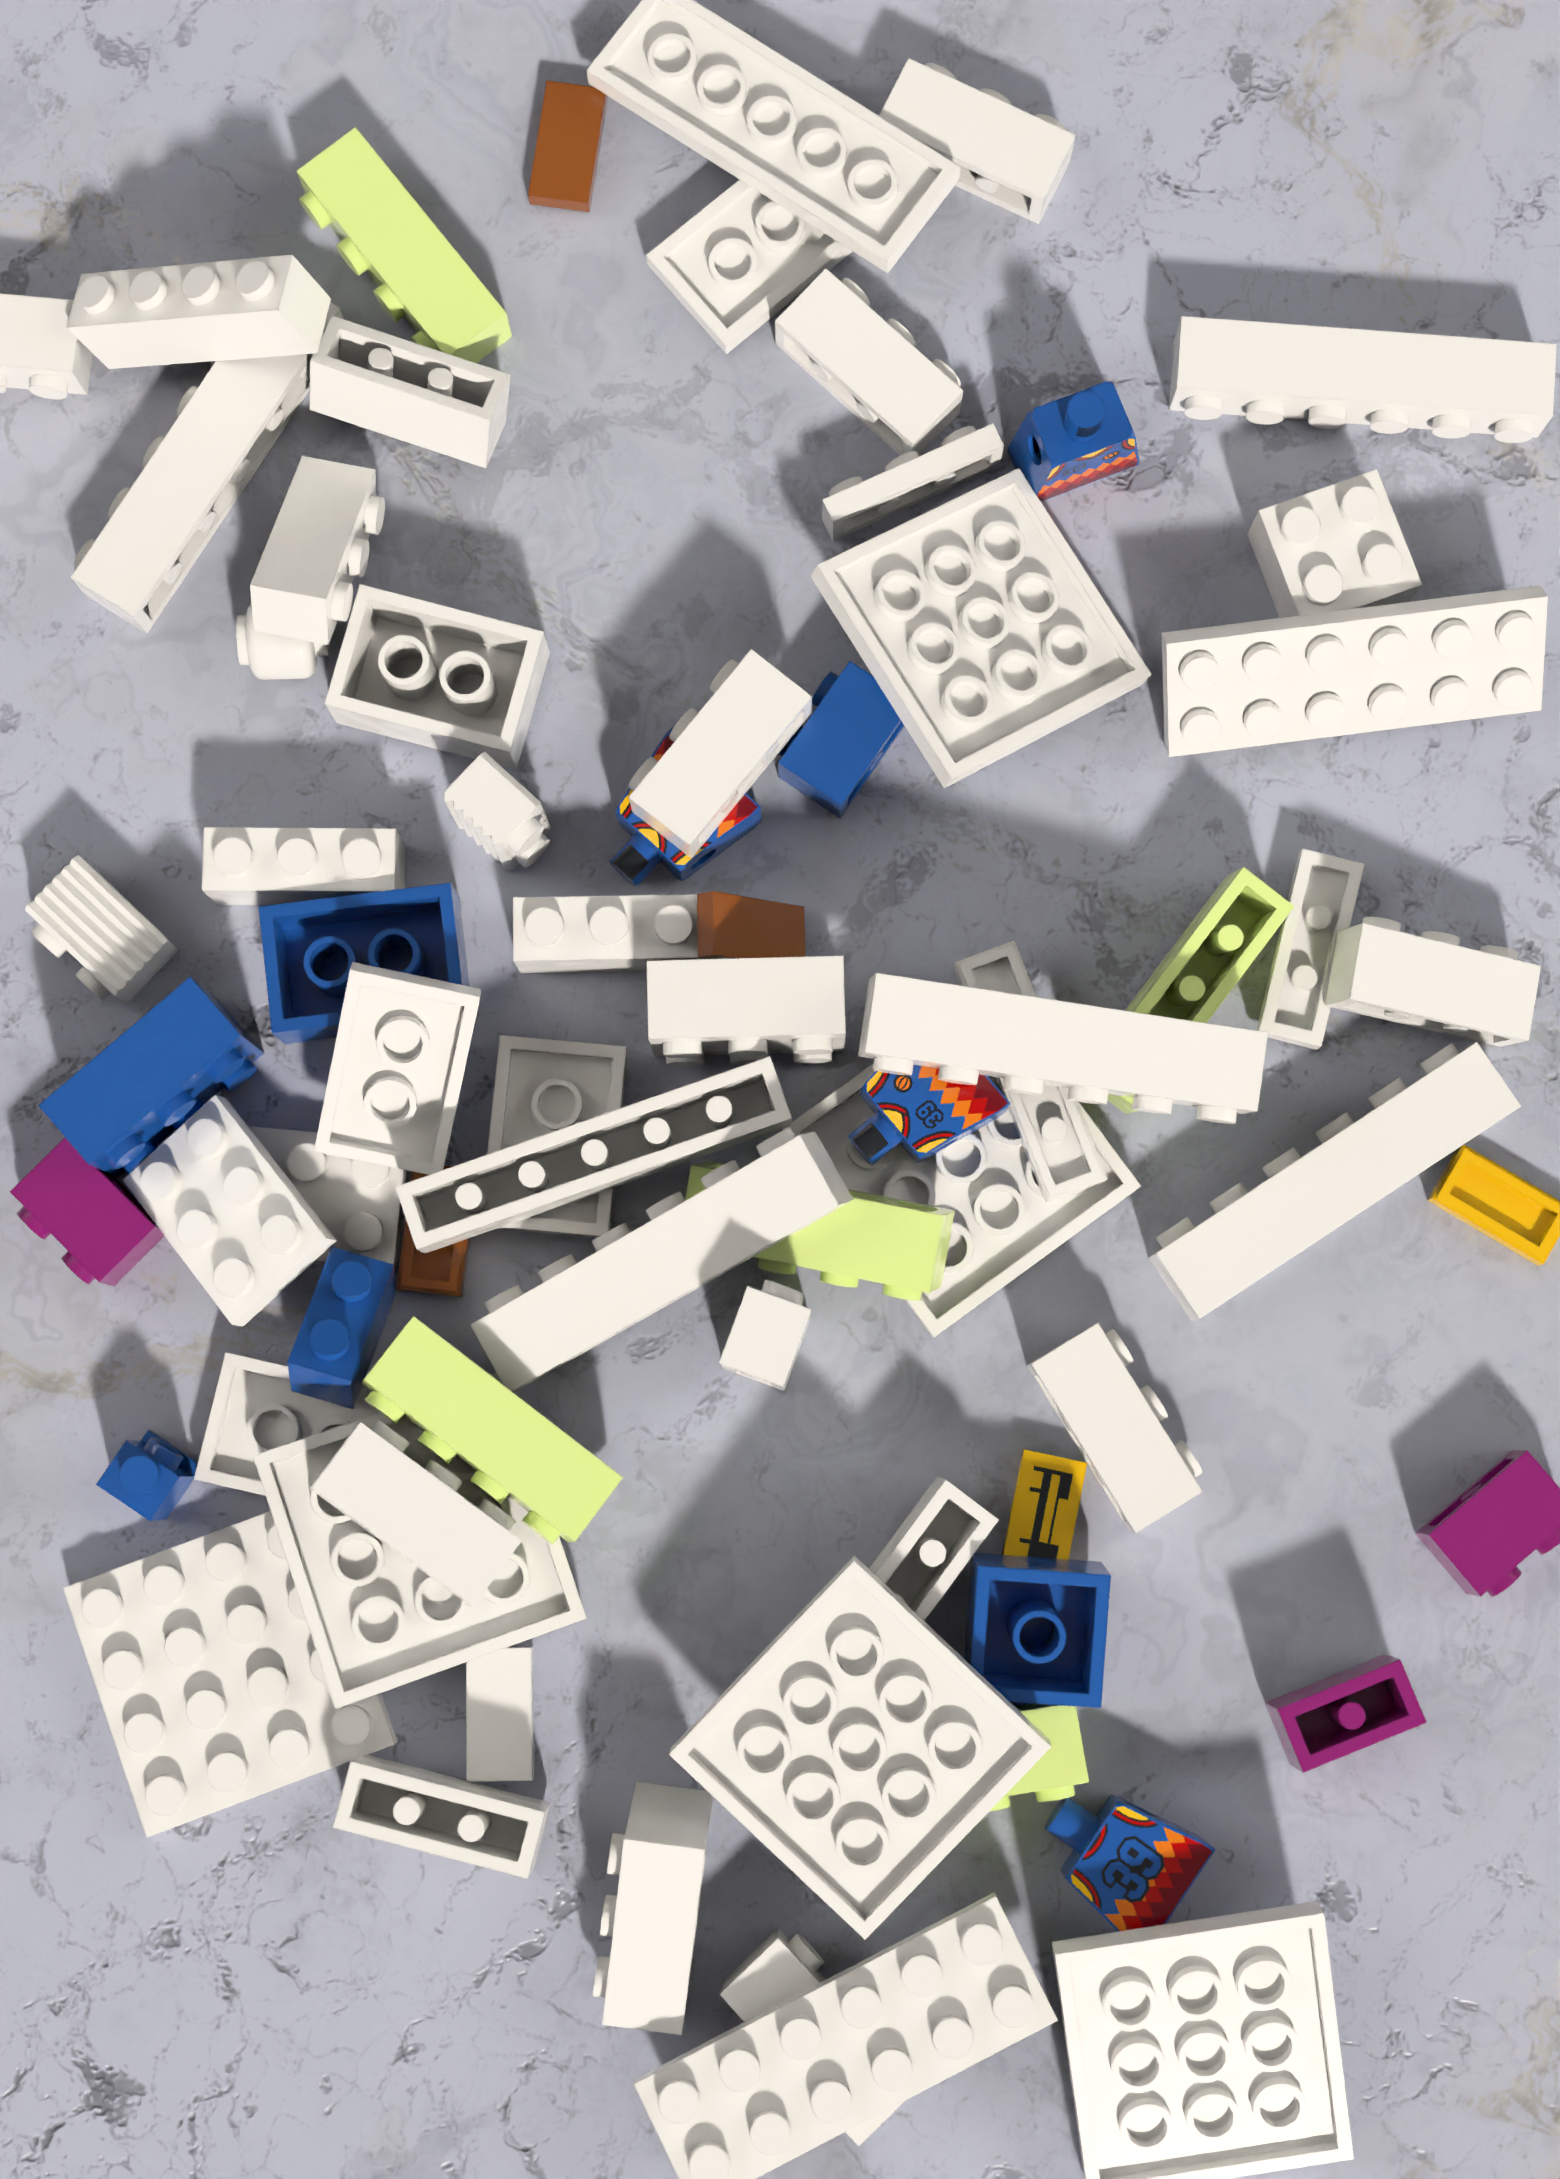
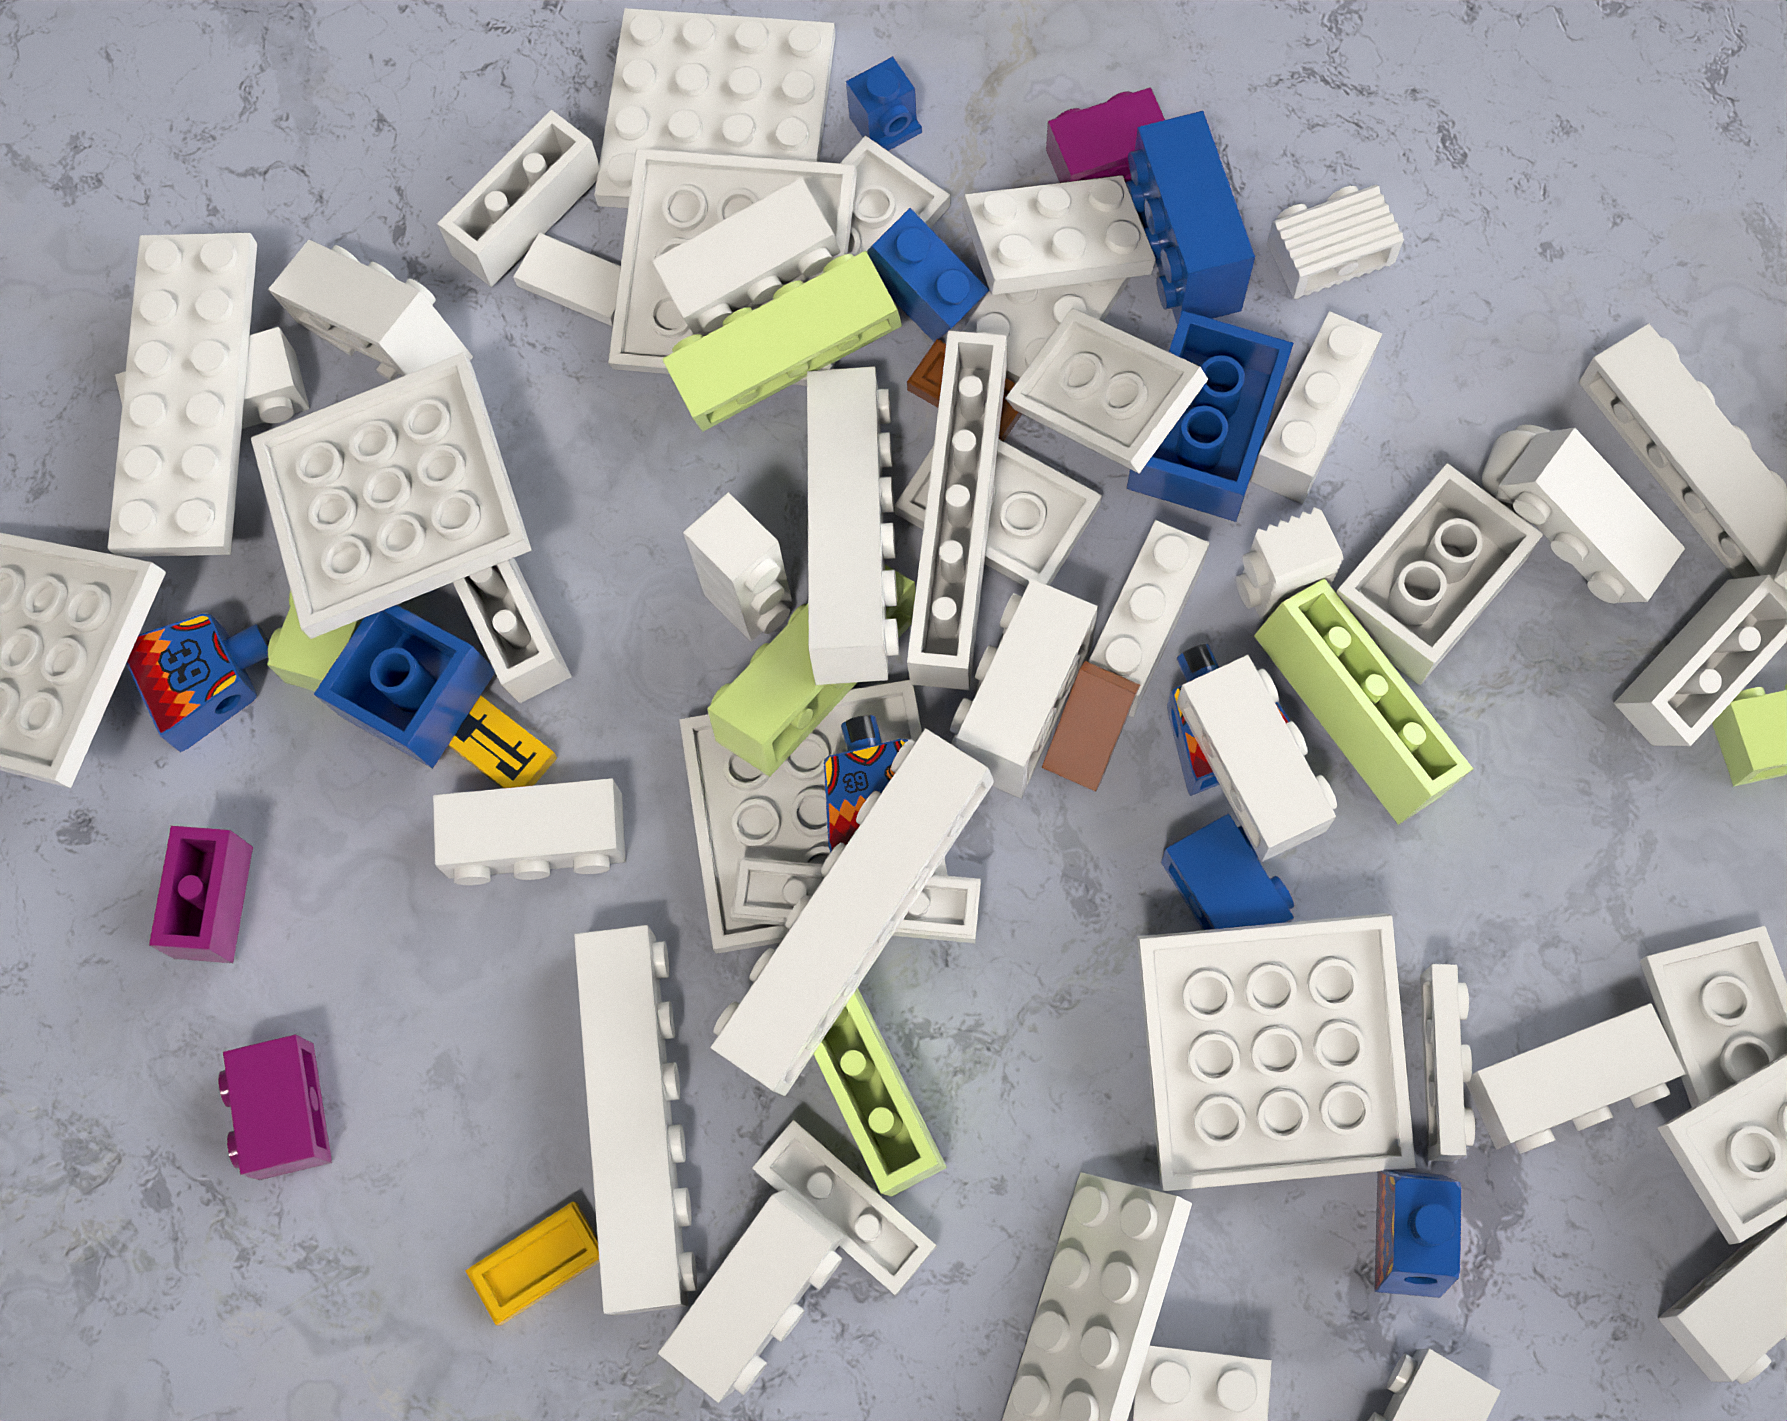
camera: 120 degrees right, 10 degrees down
(603, 689) = (1362, 701): none -> yellowish green brick

